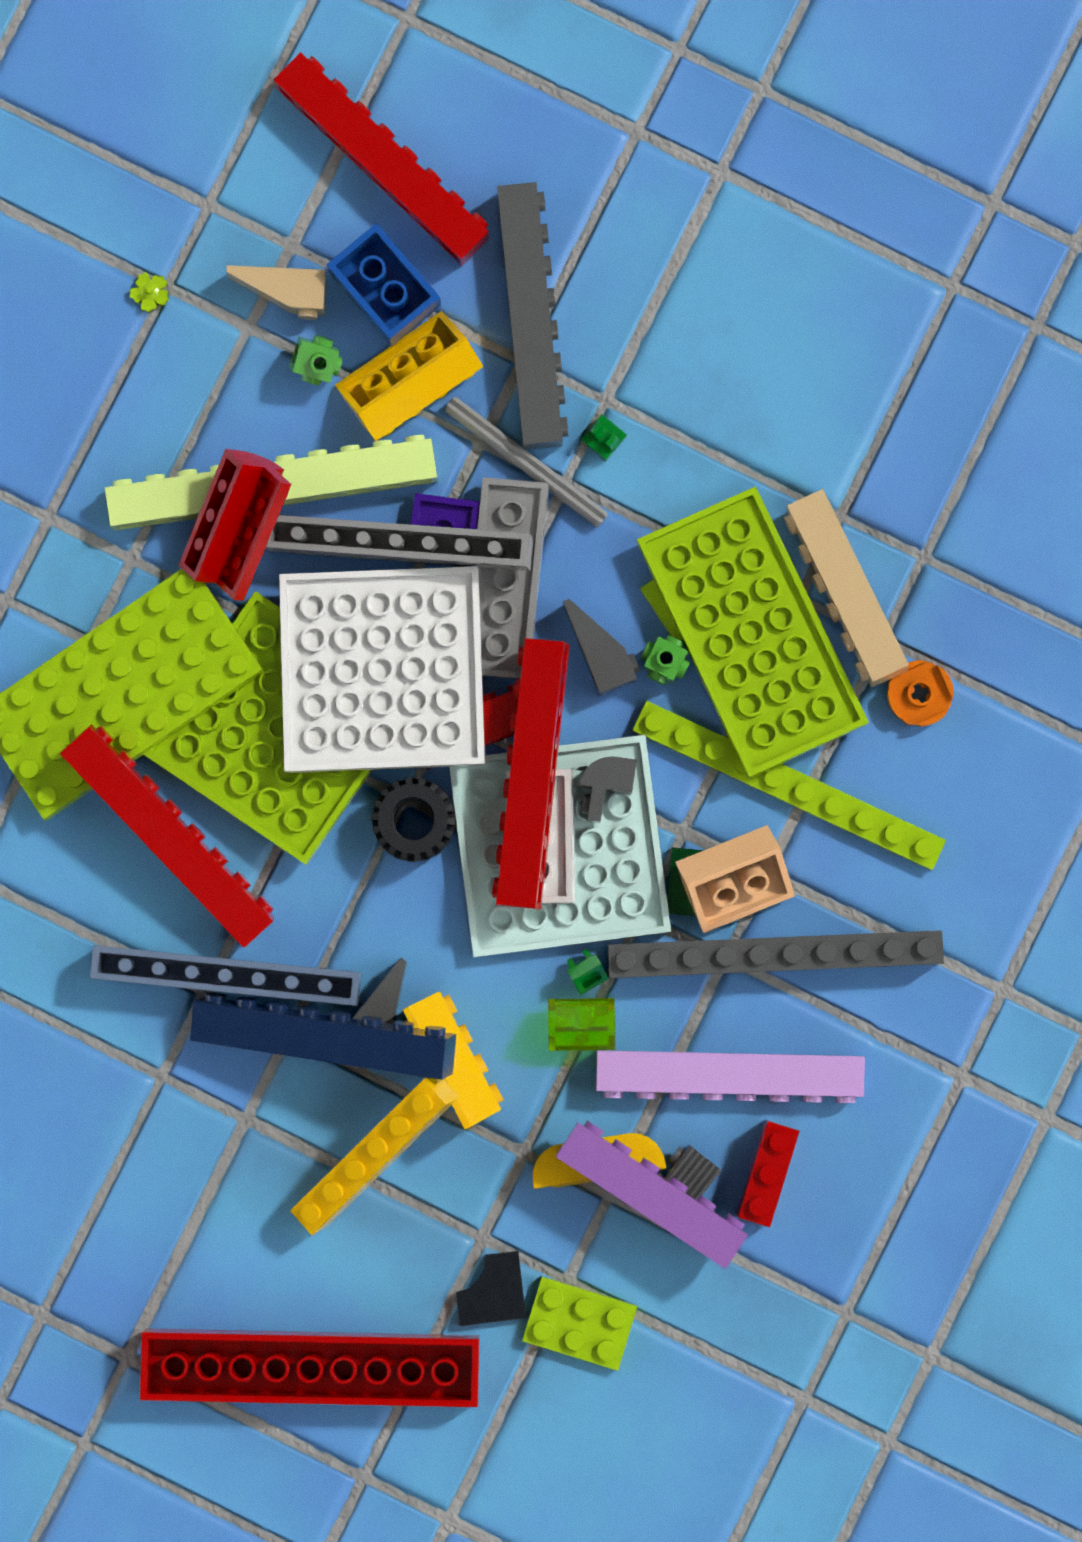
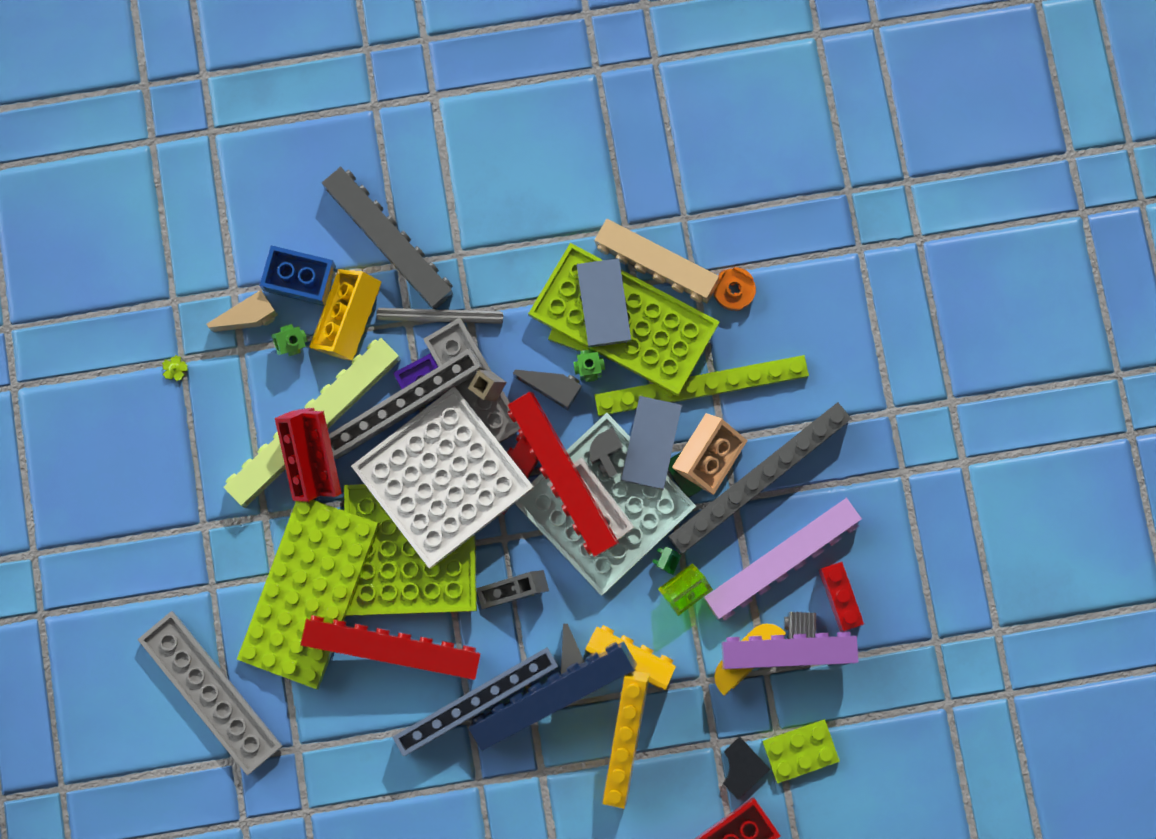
camera: 35 degrees left, 5 degrees down
(370, 870) = (513, 589): none -> dark grey slope
(381, 158) = (249, 212): red brick -> none
(392, 799) = (509, 527): black tyre -> none
(518, 595) = (487, 385): none -> dark tan brick
(603, 437) = (472, 274): green tile -> none
(672, 812) = (651, 442): none -> sand blue tile
(740, 594) = (603, 303): none -> sand blue tile

